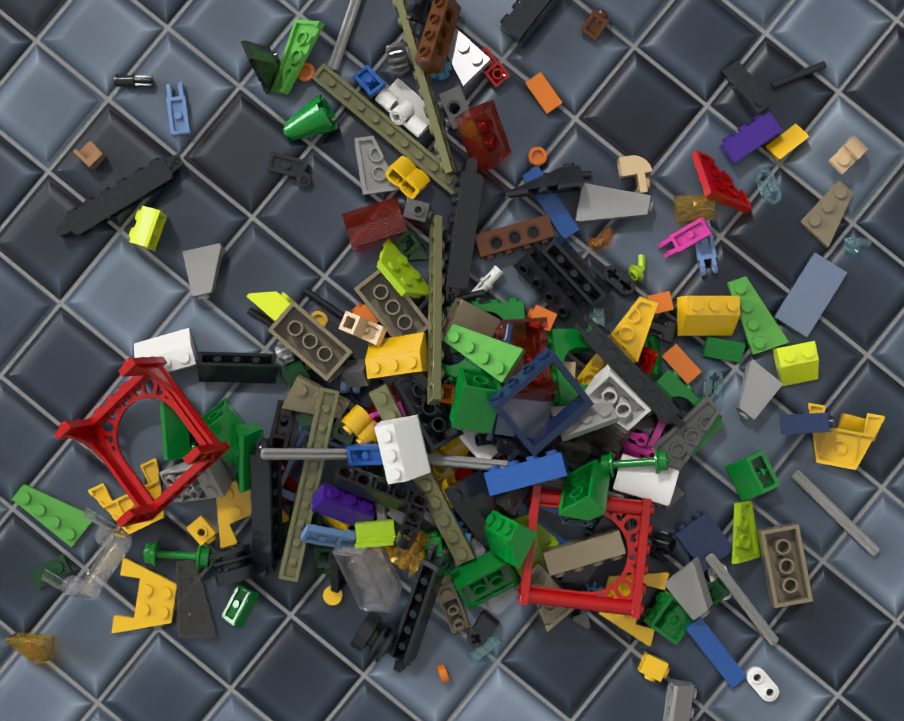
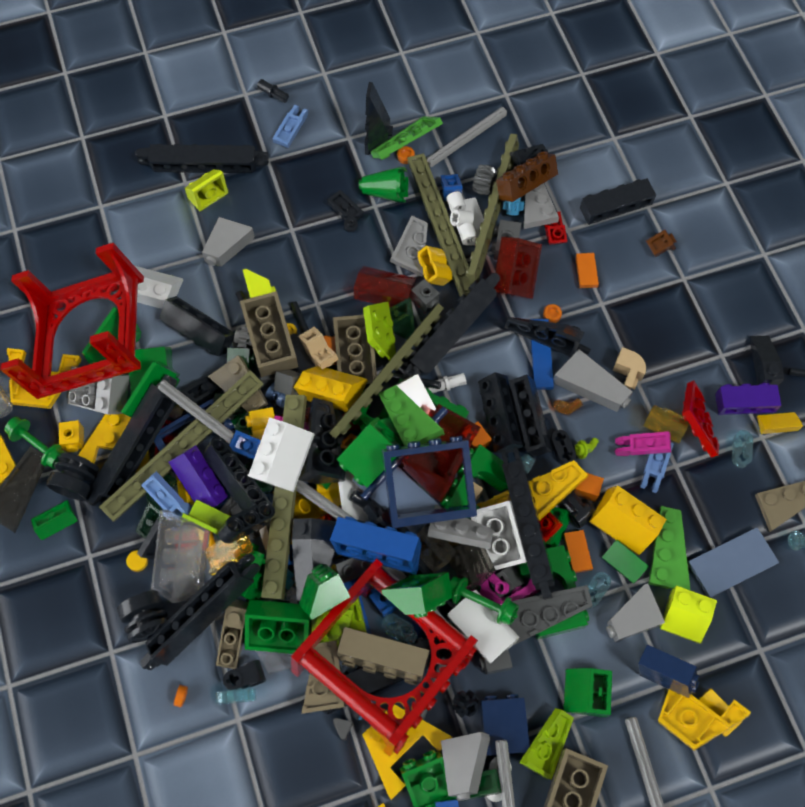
camera: 30 degrees right, 20 degrees down
(90, 155) = (203, 121): medium nougat panel -> none
(541, 224) = (489, 352): reddish brown brick -> none

